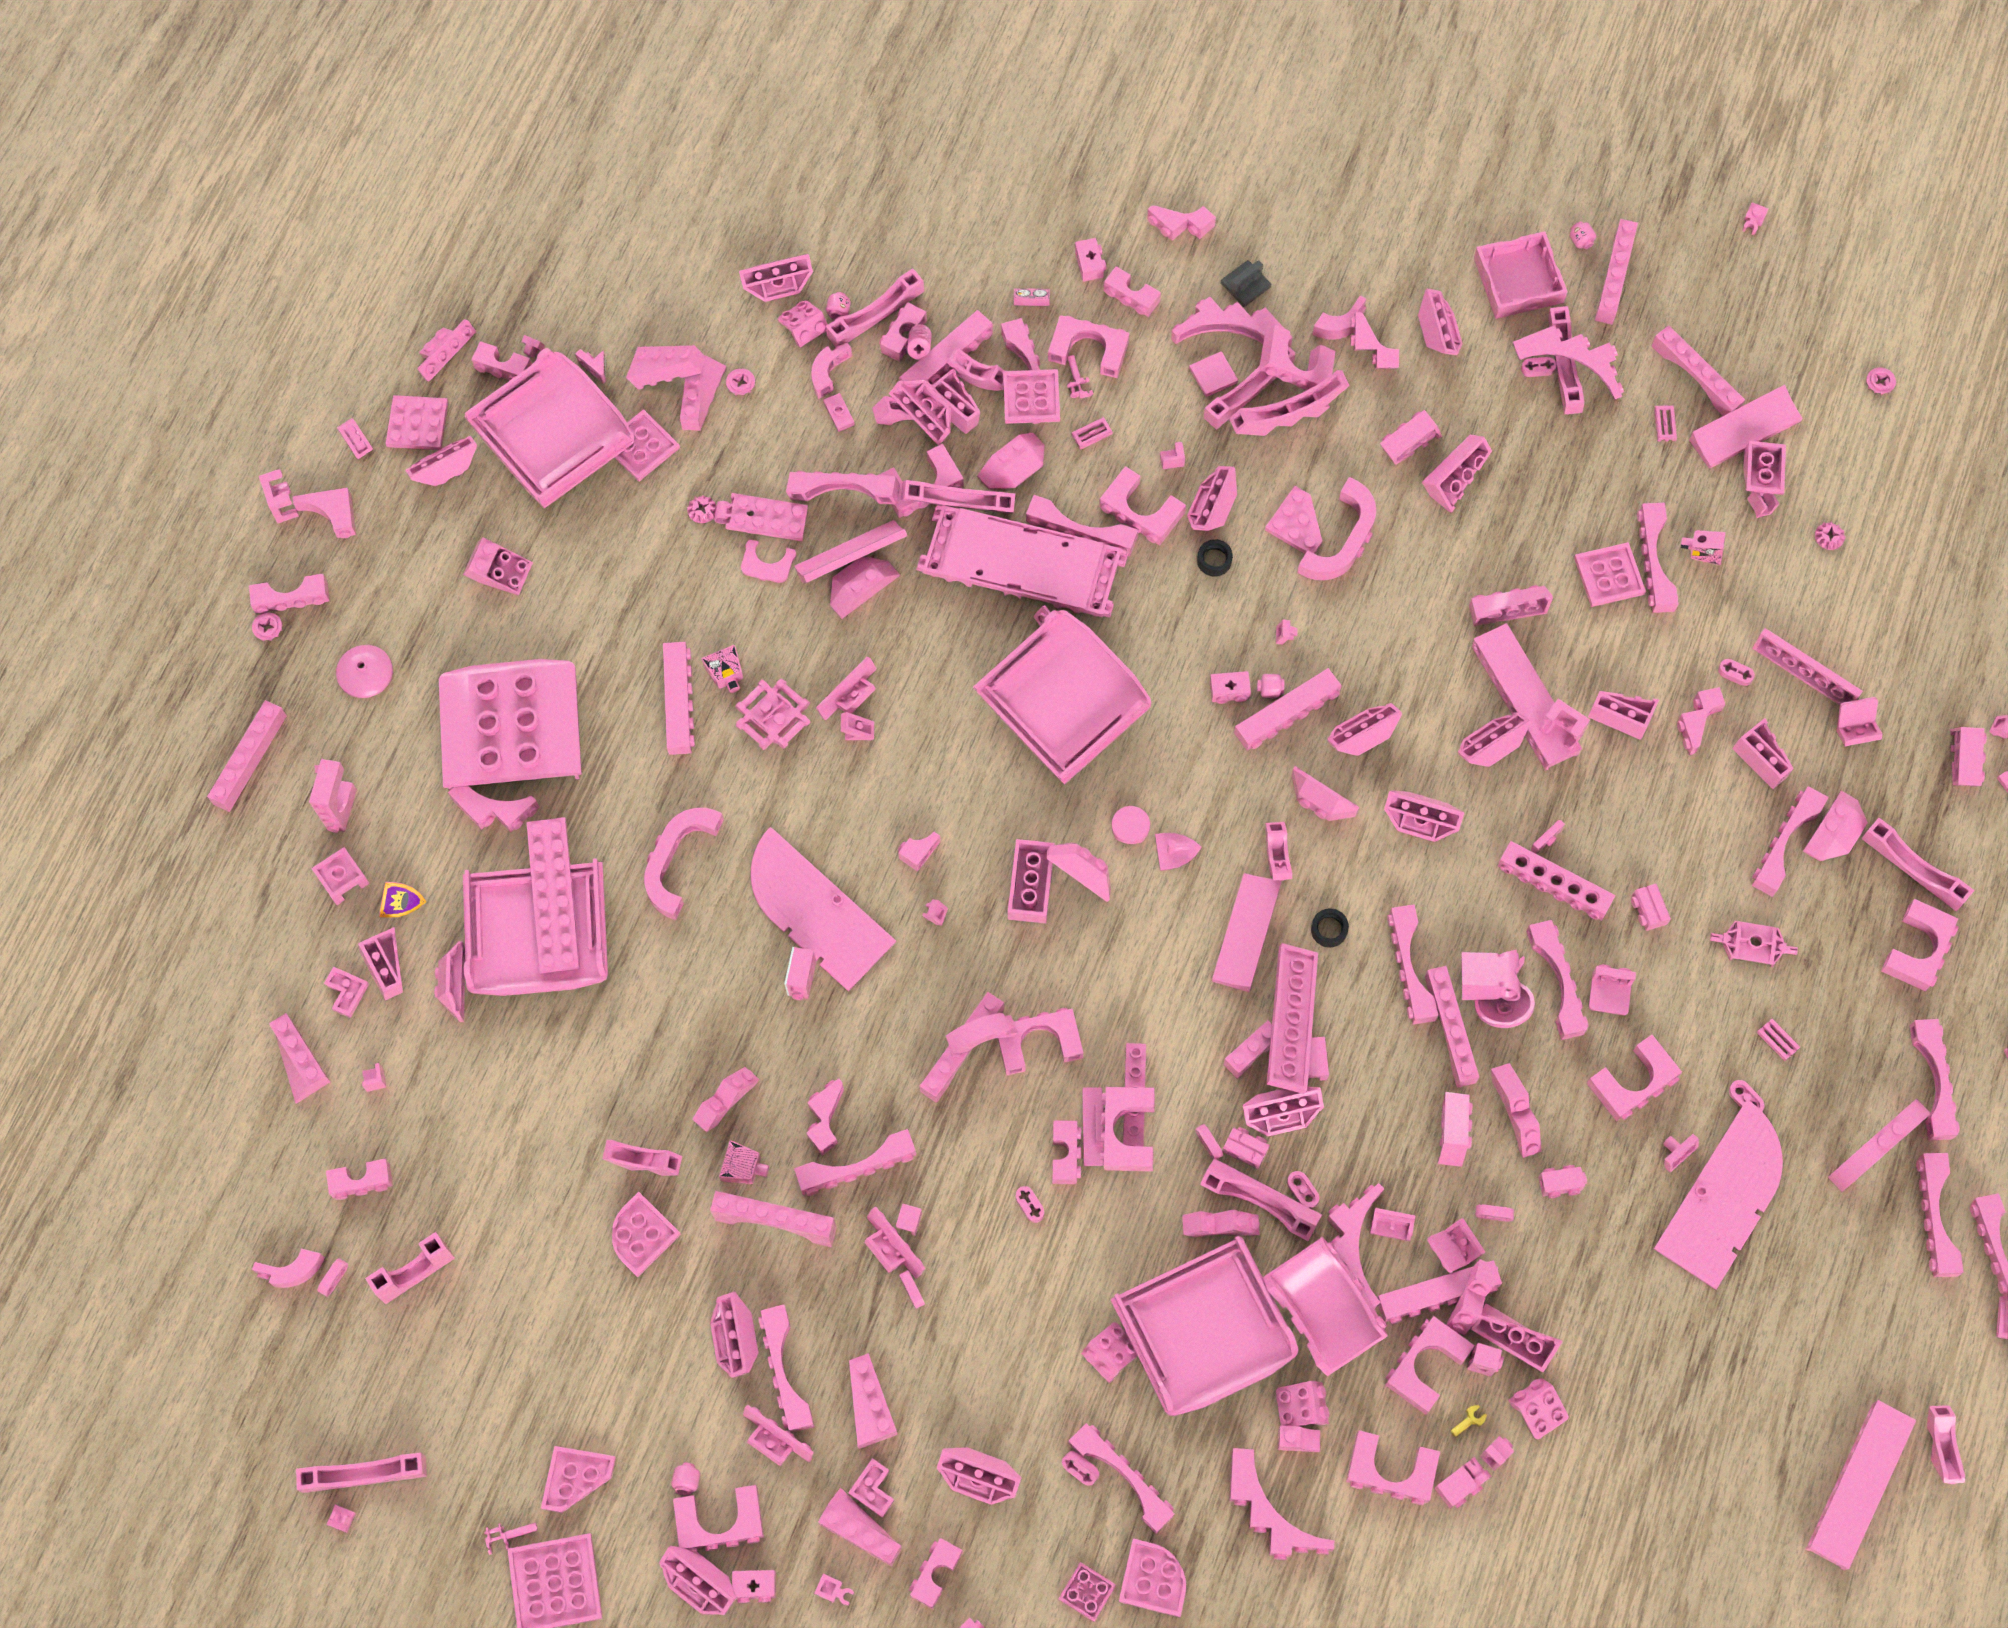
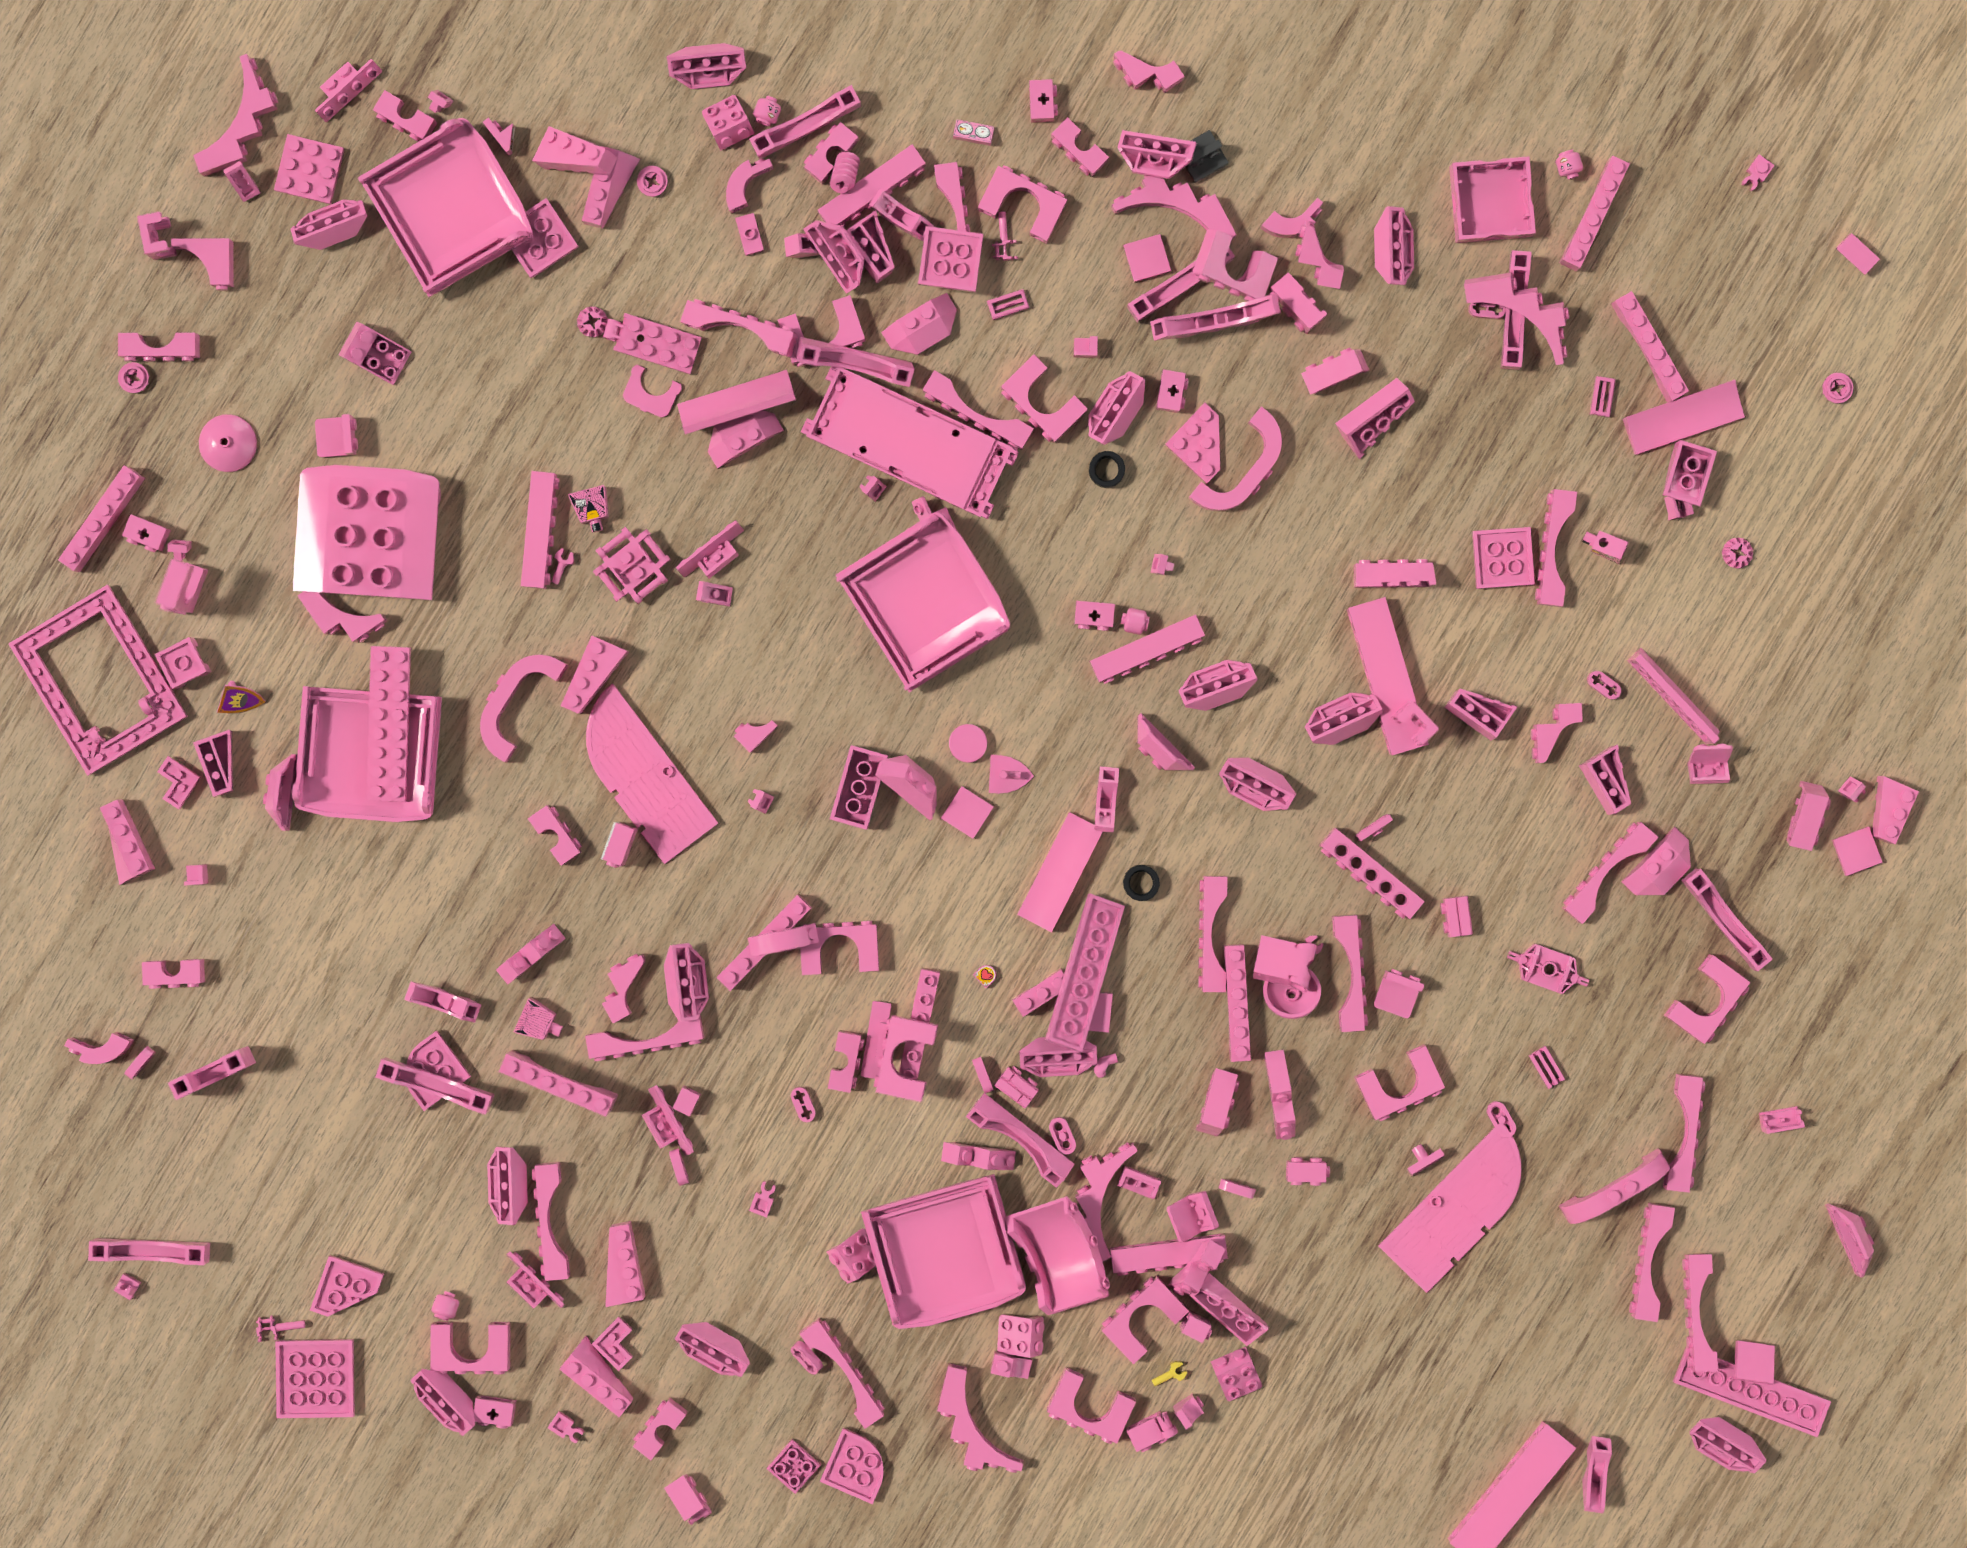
camera: 10 degrees right, 20 degrees up
(255, 971) = (89, 747): none -> bright pink plate
(283, 756) = (157, 534): none -> bright pink brick
(354, 393) = (245, 126): none -> bright pink arch
(469, 646) = (336, 436): none -> bright pink bracket
(625, 1240) = (434, 1084): none -> bright pink arch
(704, 726) = (561, 565): none -> bright pink bar
(723, 966) = (567, 847): none -> bright pink arch
(751, 813) = (592, 673): none -> bright pink wedge
(887, 1097) = (685, 982): none -> bright pink wedge
(994, 609) = (873, 488): none -> bright pink tile
(1004, 1311) = (762, 1202): none -> bright pink plate
(1142, 891) = (967, 812): none -> bright pink tile
(1192, 1044) = (985, 975): none -> tile
(1203, 281) = (1155, 154): none -> bright pink wedge
(1259, 471) = (1165, 400): none -> bright pink brick
(1329, 1111) = (1103, 1063): none -> bright pink arm
(1366, 389) = (1297, 303): none -> bright pink wedge
(1866, 265) = (1857, 253): none -> bright pink hinge

